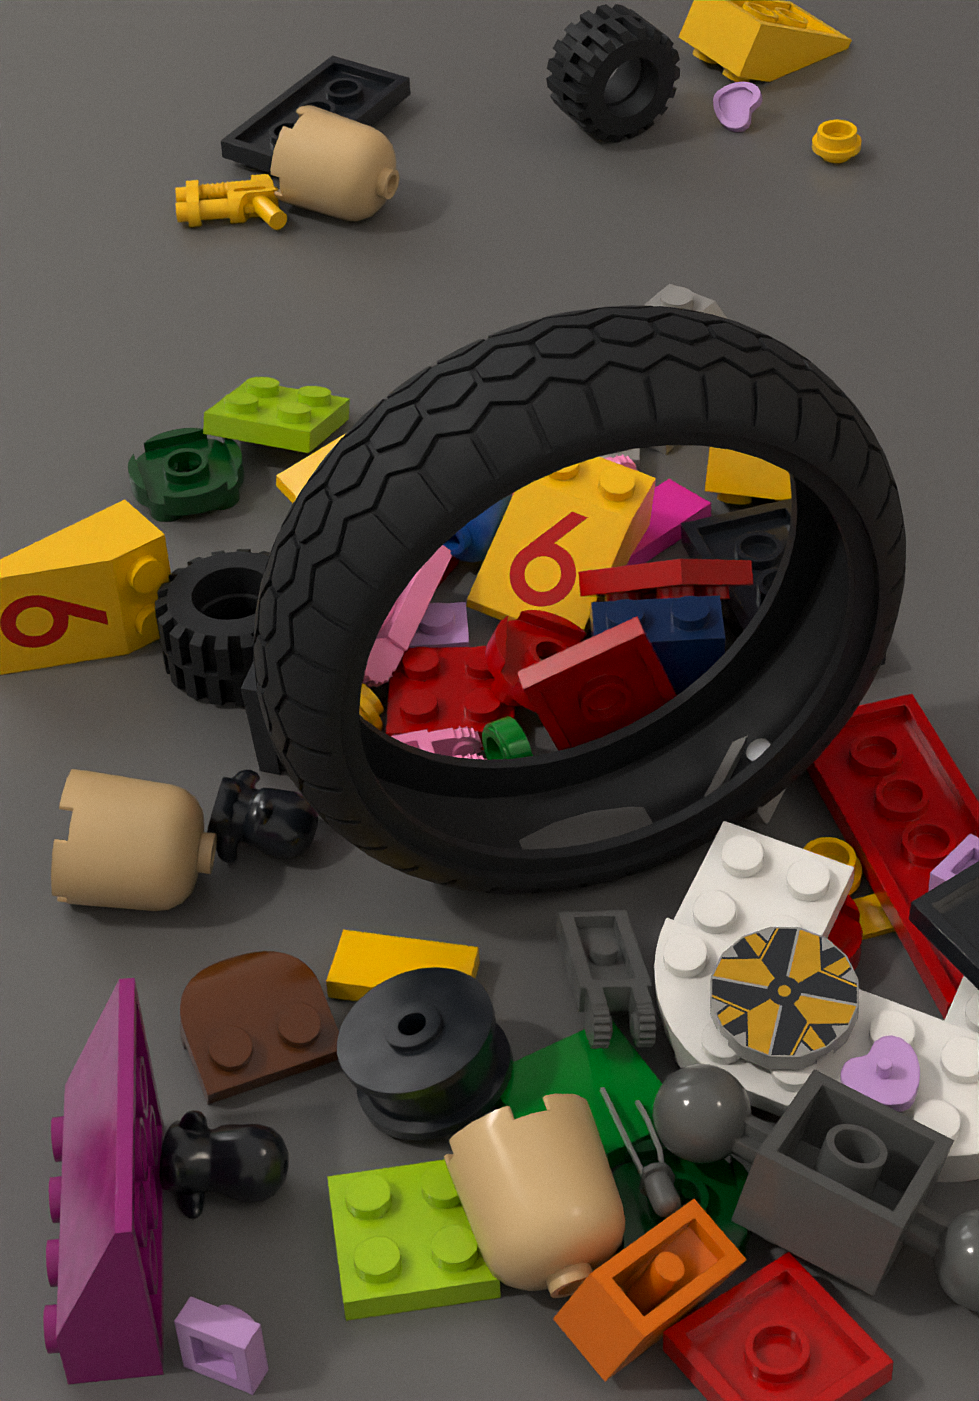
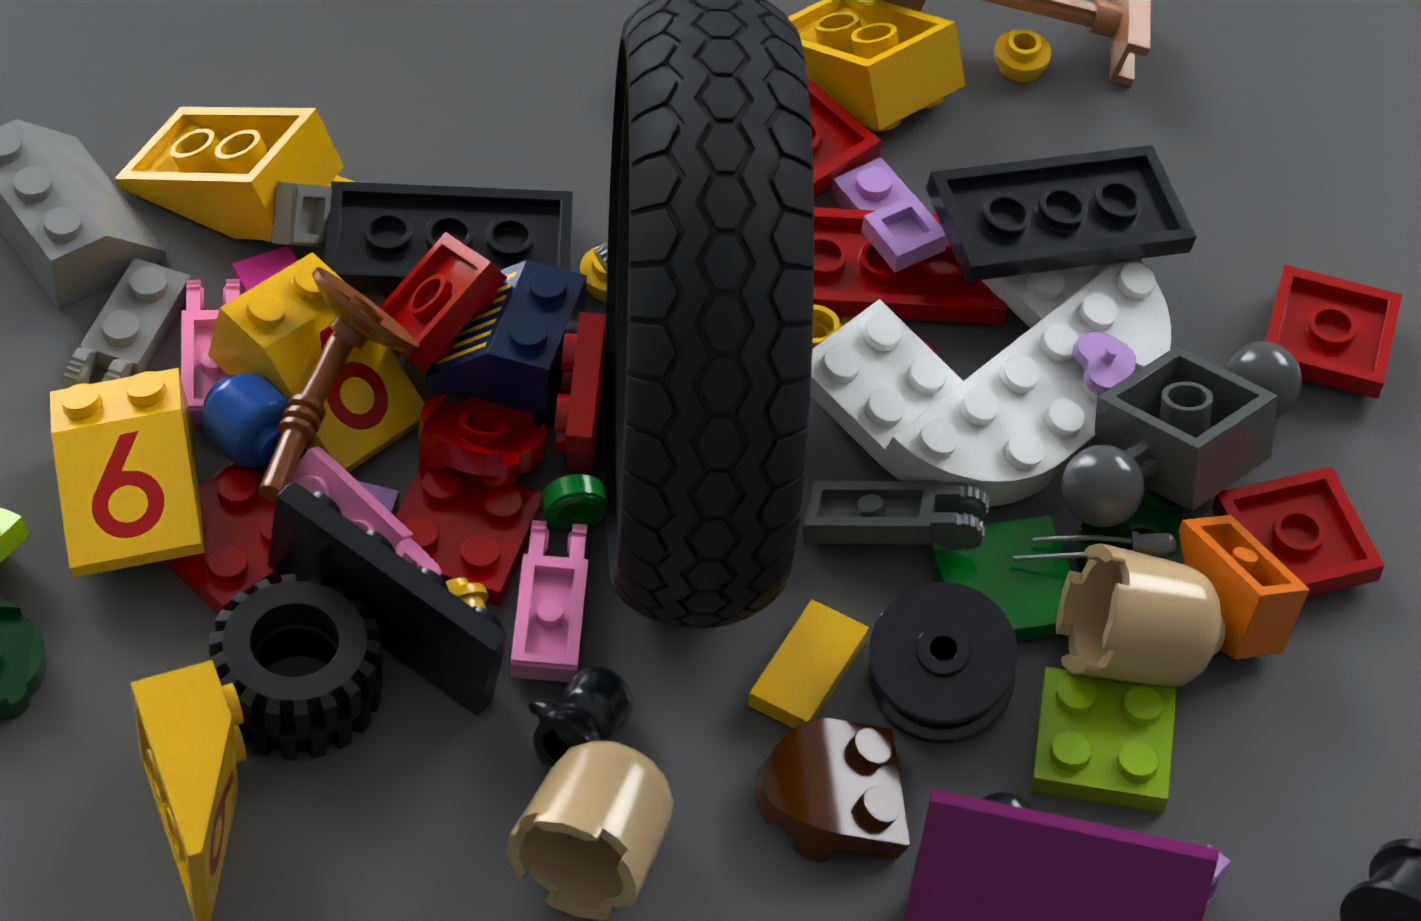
camera: 80 degrees left, 10 degrees up
(566, 516) = (355, 323): none -> dark orange dish
(734, 484) = (301, 214): none -> light grey tile
(784, 997) = (1019, 388): tile -> none

